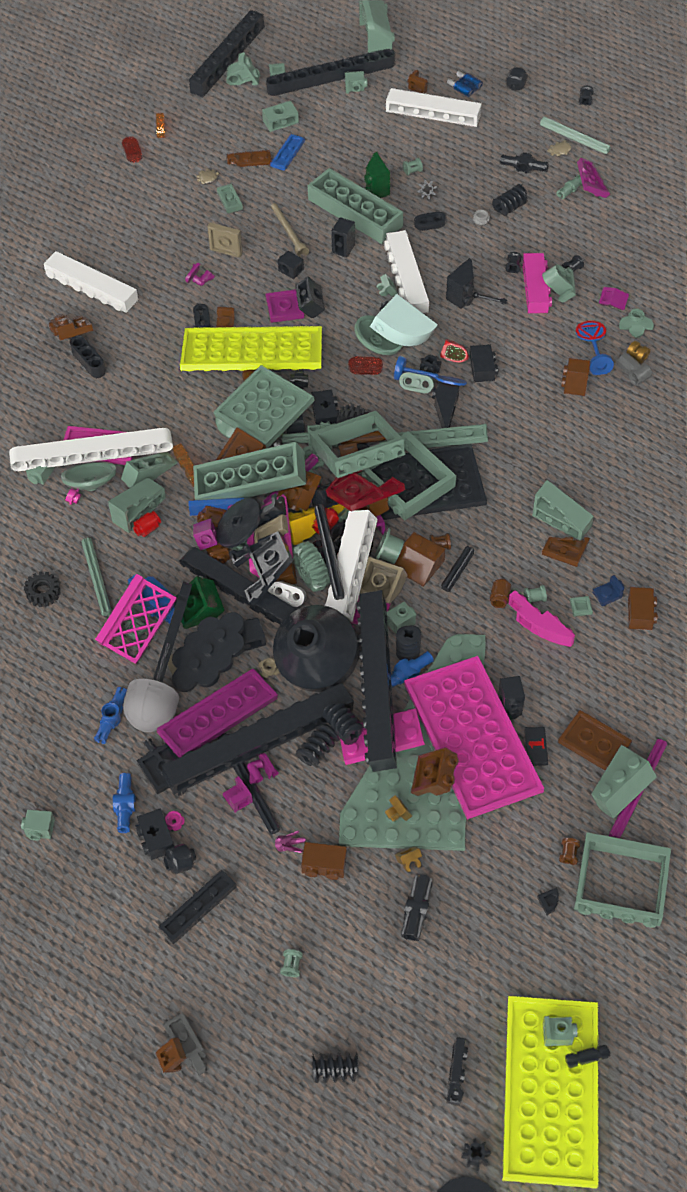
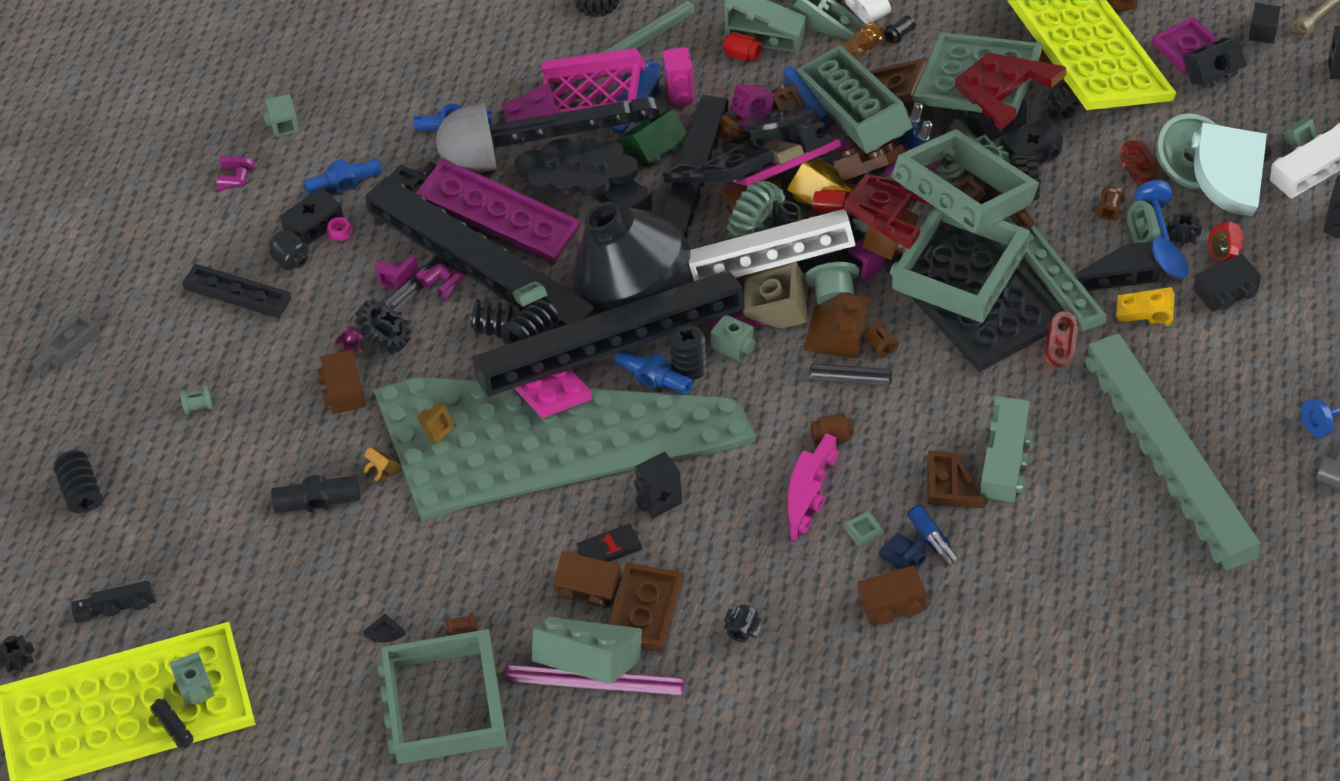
camera: 70 degrees right, 5 degrees down
(82, 874) = (241, 166): none -> magenta piece
(134, 663) = (531, 104): none -> magenta plate
(161, 565) = (678, 77): none -> dark pink brick
(171, 1056) = (39, 331): reddish brown bracket -> none
(182, 437) = (895, 32): none -> black pin
(282, 397) = (997, 77): none -> dark red wing
(288, 593) = (711, 214): white plate -> none
(290, 816) = (382, 326): none -> black gear
(320, 713) = (529, 293): none -> sand green tile
(329, 552) = (772, 214): black axle -> none
(387, 386) = (1111, 200): none -> reddish brown bush
(435, 772) = (497, 436): reddish brown plate -> none
(469, 719) = (577, 465): dark pink plate -> none
(480, 405) = (1152, 305): none -> yellow plate
(488, 454) = (1062, 341): none -> clear red plate
(535, 594) = (850, 468): sand green bush -> none
(564, 764) = (586, 579): none -> reddish brown brick
(576, 376) = (1265, 391): reddish brown brick -> none
(592, 437) = (1172, 453): none -> sand green brick
(604, 571) = (930, 532): none -> clear blue piece
(631, 692) = (742, 623): none -> black gear

